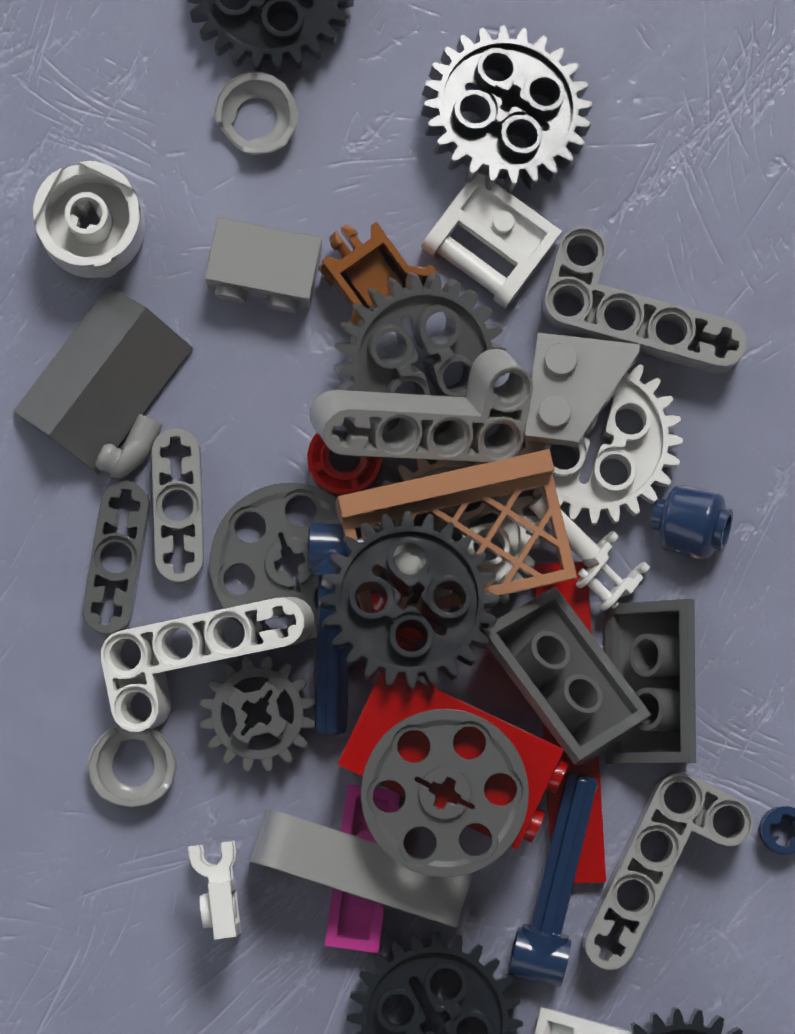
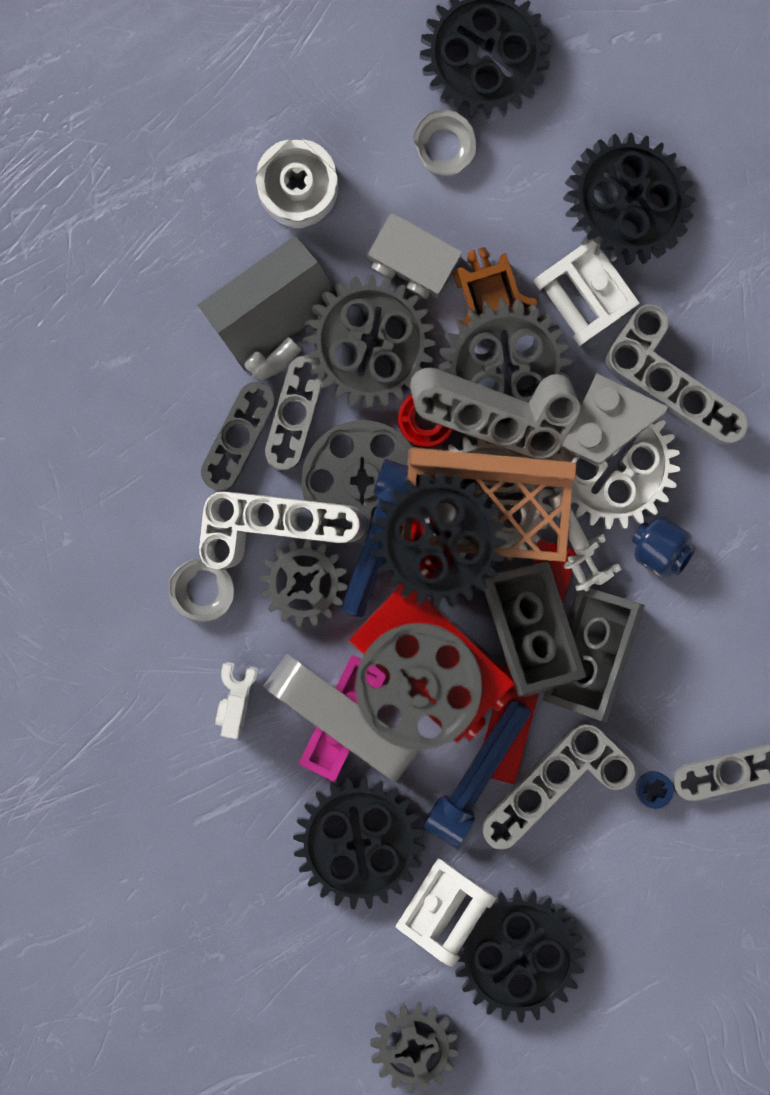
camera: 25 degrees right, 5 degrees up
(194, 384) = (334, 329): none -> dark grey gear

